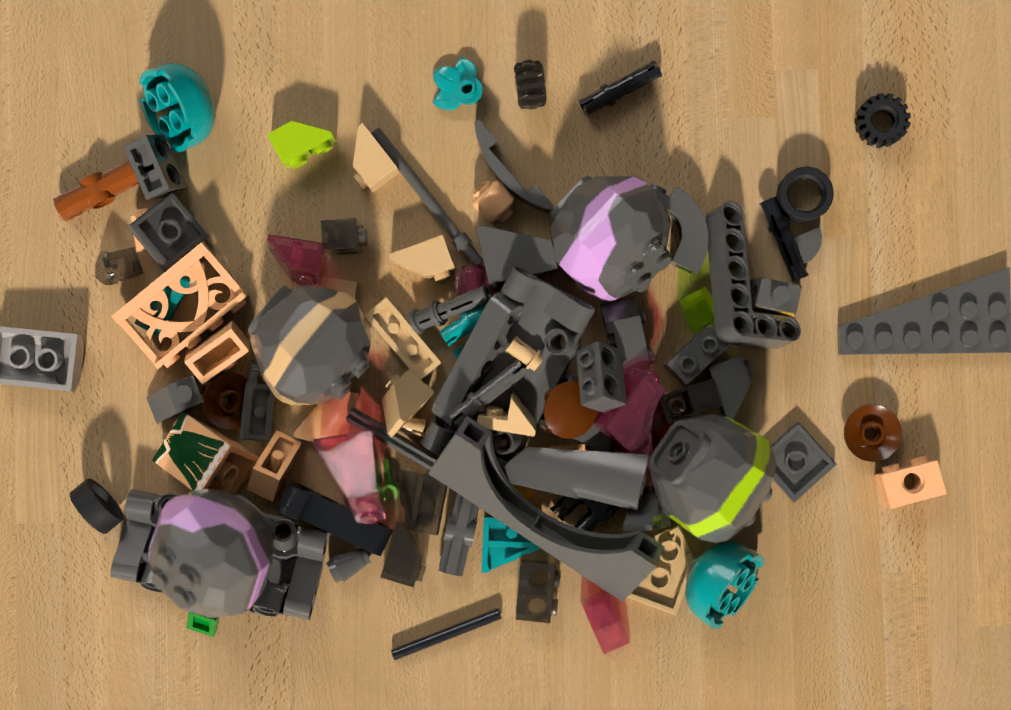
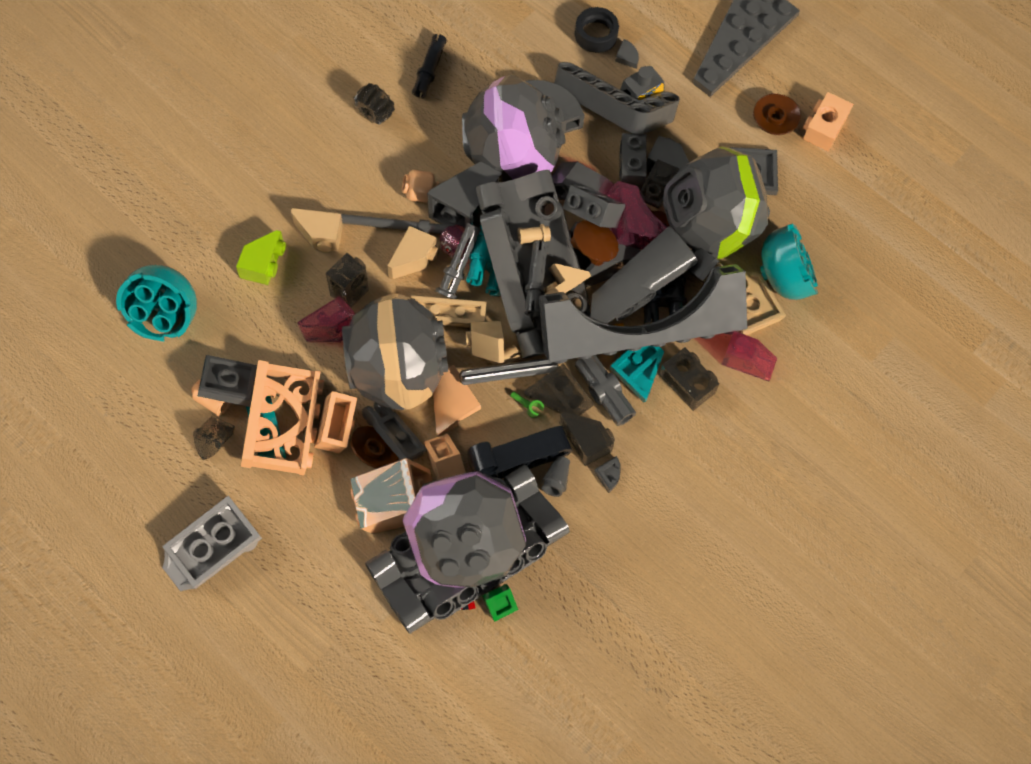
camera: 55 degrees left, 20 degrees down
(96, 191) = (152, 403): dark orange piece -> none
(96, 506) = (352, 593): black tyre -> none
(154, 166) = (178, 350): dark grey brick -> none
(176, 398) = (336, 479): dark grey slope -> none
(355, 472) = (503, 407): clear pink slope -> none
(393, 601) = (609, 473): none -> dark grey tile
(446, 634) = (663, 461): black bar -> none
(453, 83) = (326, 146): teal plate -> none
(531, 197) = (399, 166): dark grey slope -> none
(697, 308) = (605, 137): clear neon green panel -> none
(783, 239) = (585, 52): black pin -> none

